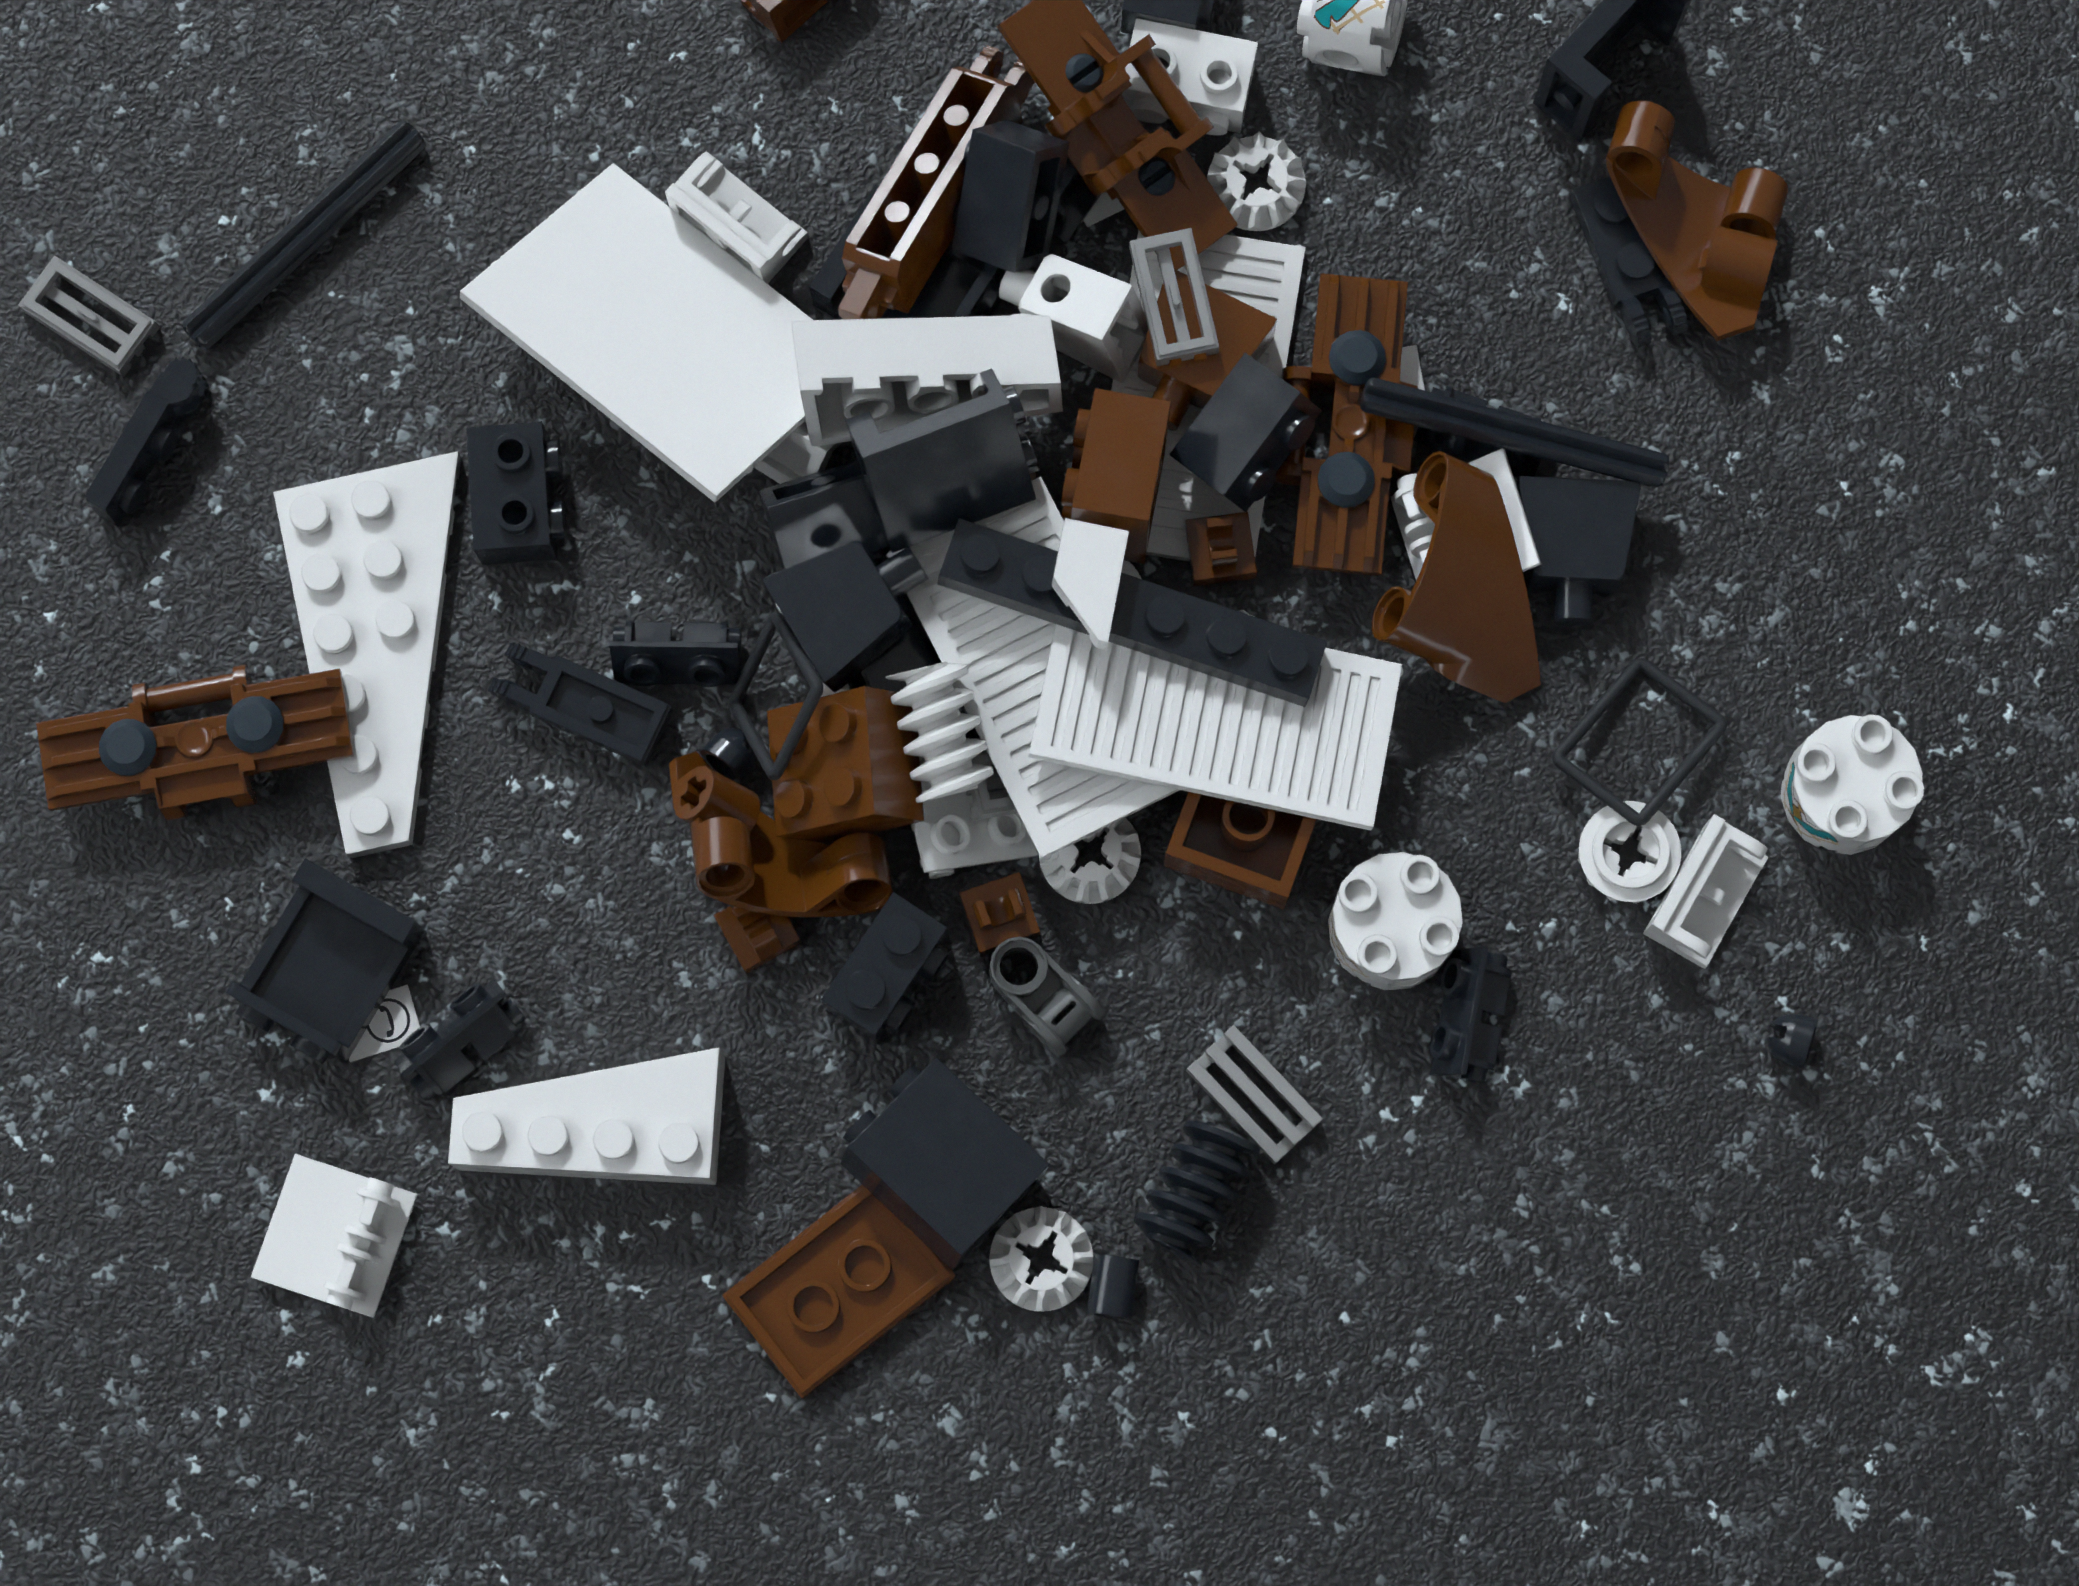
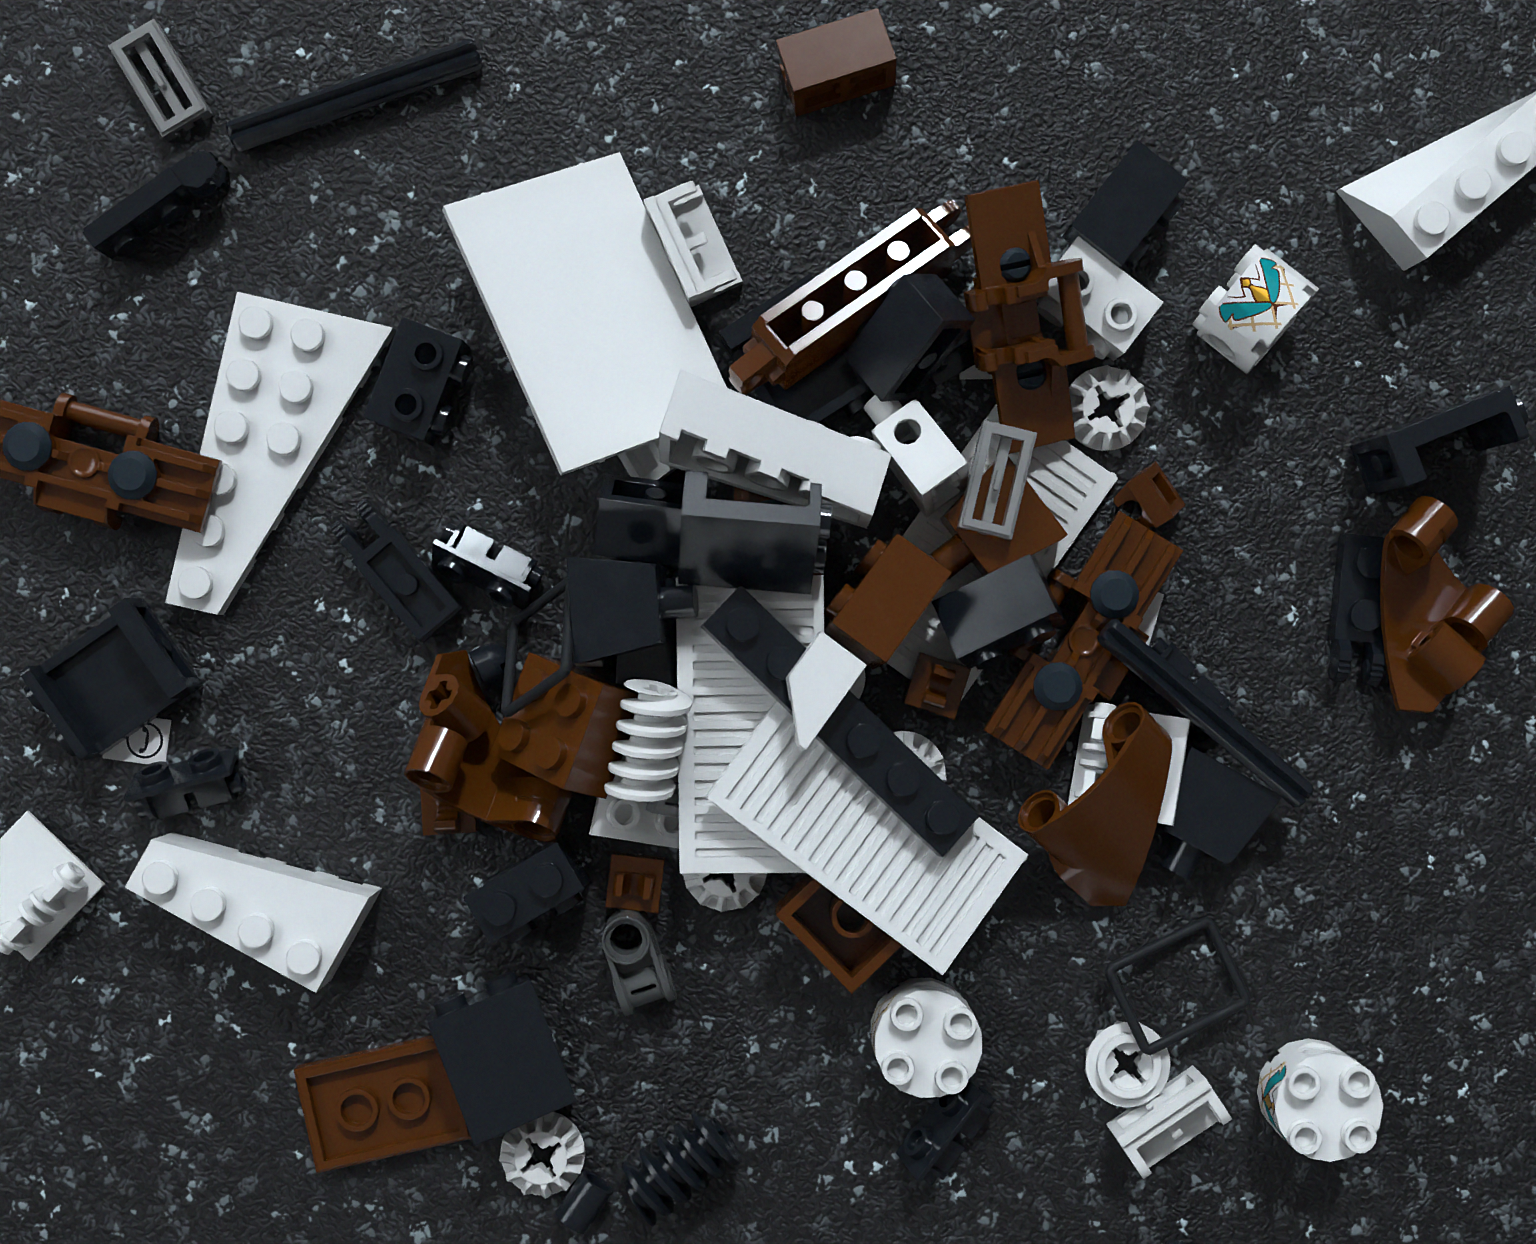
camera: 25 degrees right, 10 degrees up
(1280, 1085) = (771, 1150): light grey tile -> none
(1349, 241) = (1154, 494): none -> reddish brown tile

